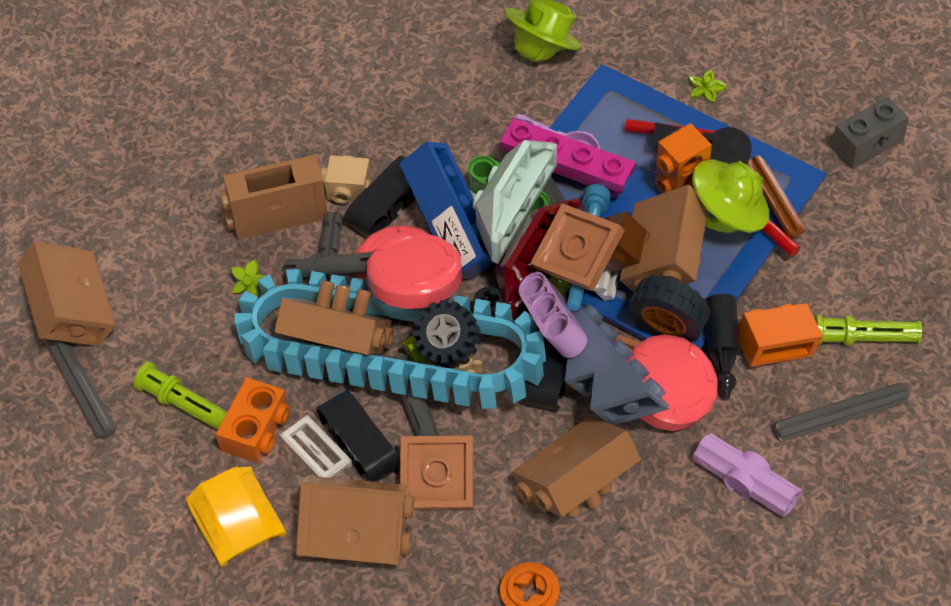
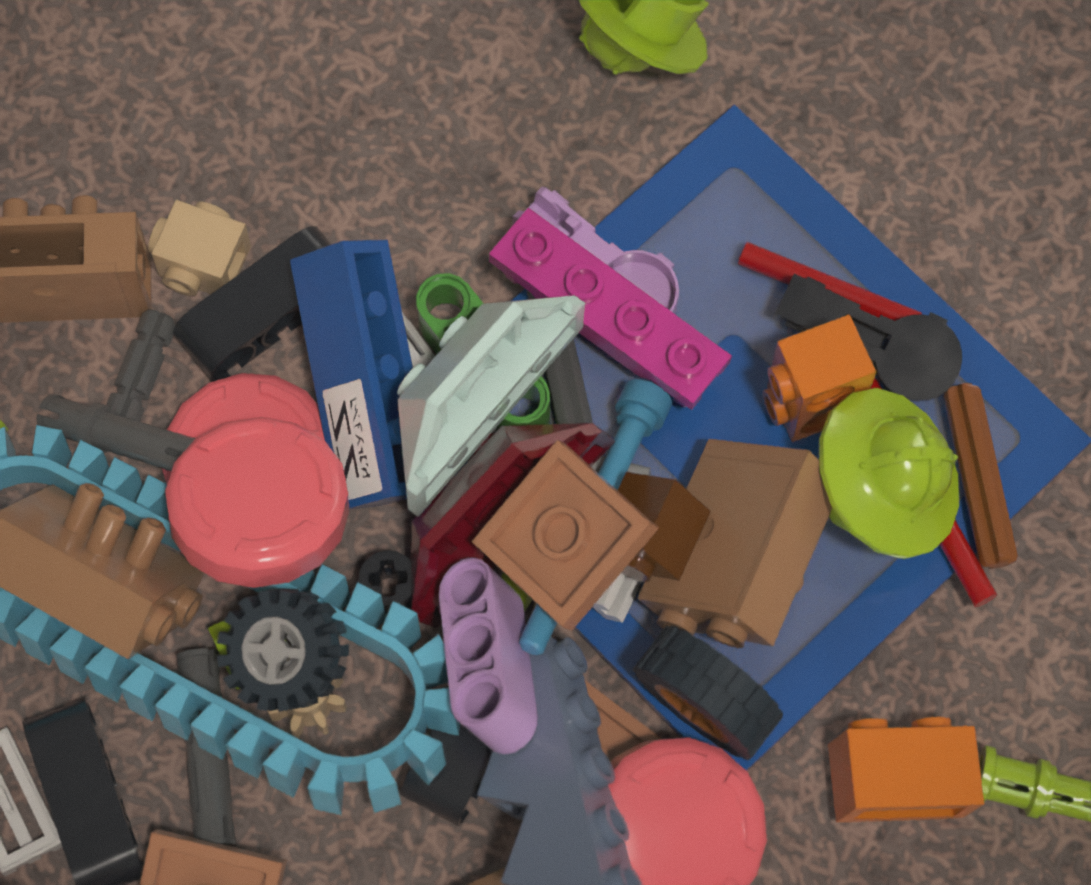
camera: 10 degrees right, 15 degrees up
(706, 86) = (919, 196): lime plant -> none
(723, 339) = (799, 761): black wheel -> none

